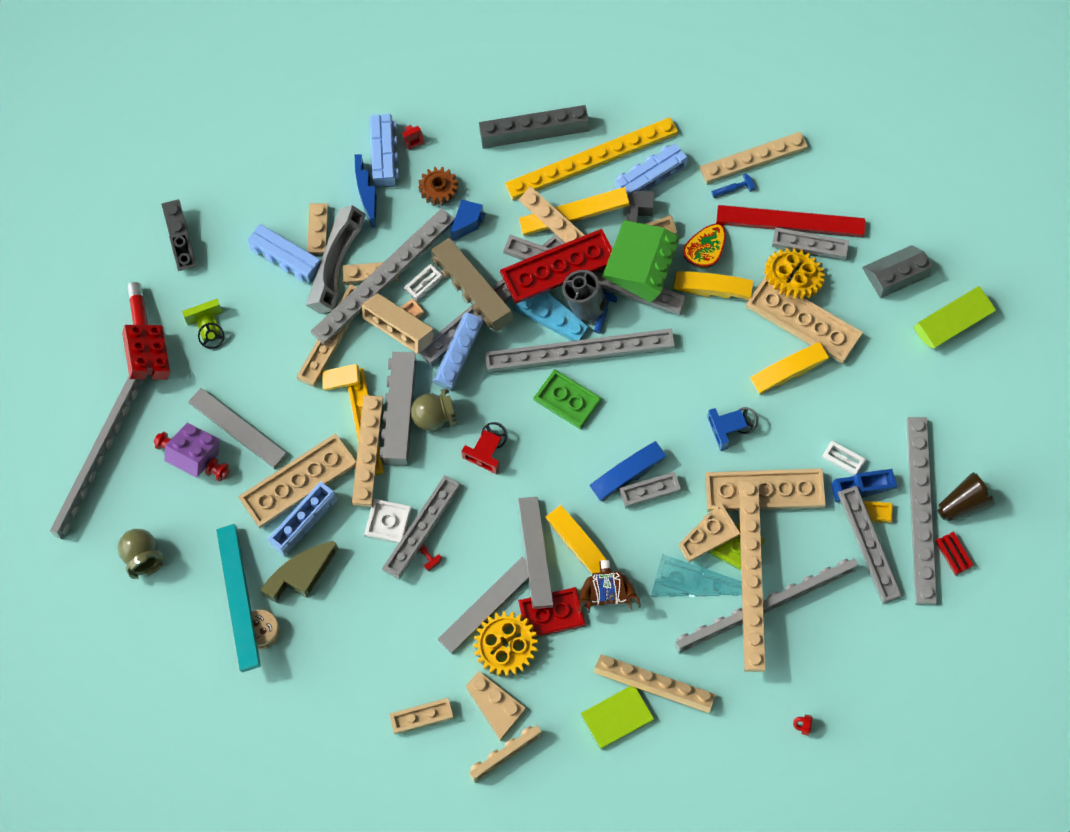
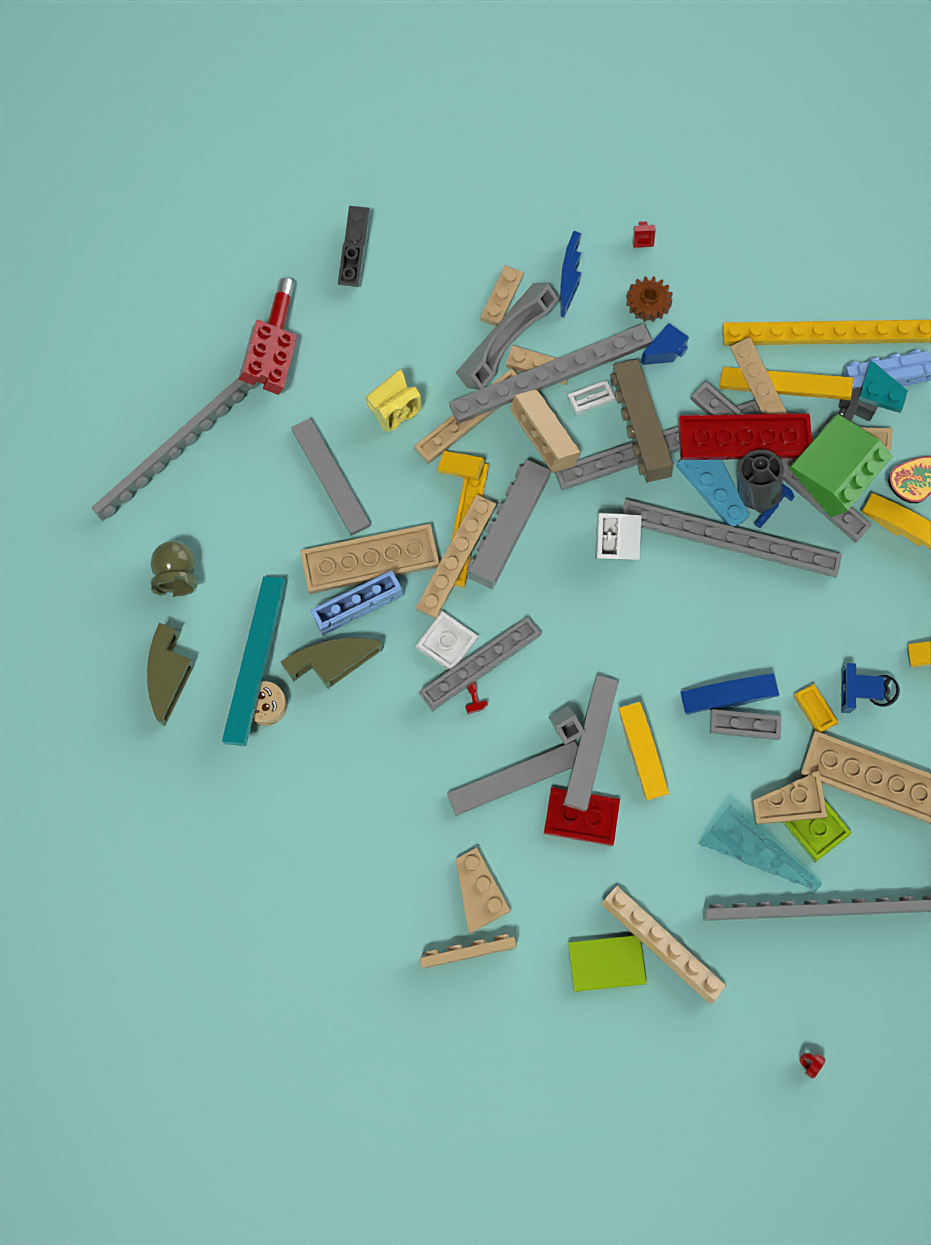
camera: 20 degrees right, 5 degrees up
(169, 637) = (166, 673): none -> olive slope
(193, 452) = (272, 483): medium lavender brick -> none
(204, 317) = (345, 349): lime piece -> none
(265, 347) = (394, 402): none -> light yellow piece
(285, 253) = (456, 308): light blue brick -> none
(383, 150) = (605, 238): light blue brick -> none
(413, 308) = (568, 421): light nougat tile -> none
(421, 716) = (394, 871): tan plate -> none
(432, 411) = (543, 541): olive tile -> none
(457, 351) = (597, 486): light blue brick -> none
(485, 448) = (584, 604): red piece -> none
(490, 383) = (618, 536): none -> white slope
(510, 546) = (566, 725): none -> light grey brick
(515, 658) = (515, 809): yellow gear -> none
(534, 126) = (779, 273): dark grey brick -> none
(567, 399) = (695, 586): bright green tile -> none
(607, 588) = (654, 817): reddish brown torso -> none
(651, 187) = (882, 389): none -> teal wing
(699, 455) = (815, 709): none -> yellow tile
(751, 577) = (820, 873): tan plate -> none

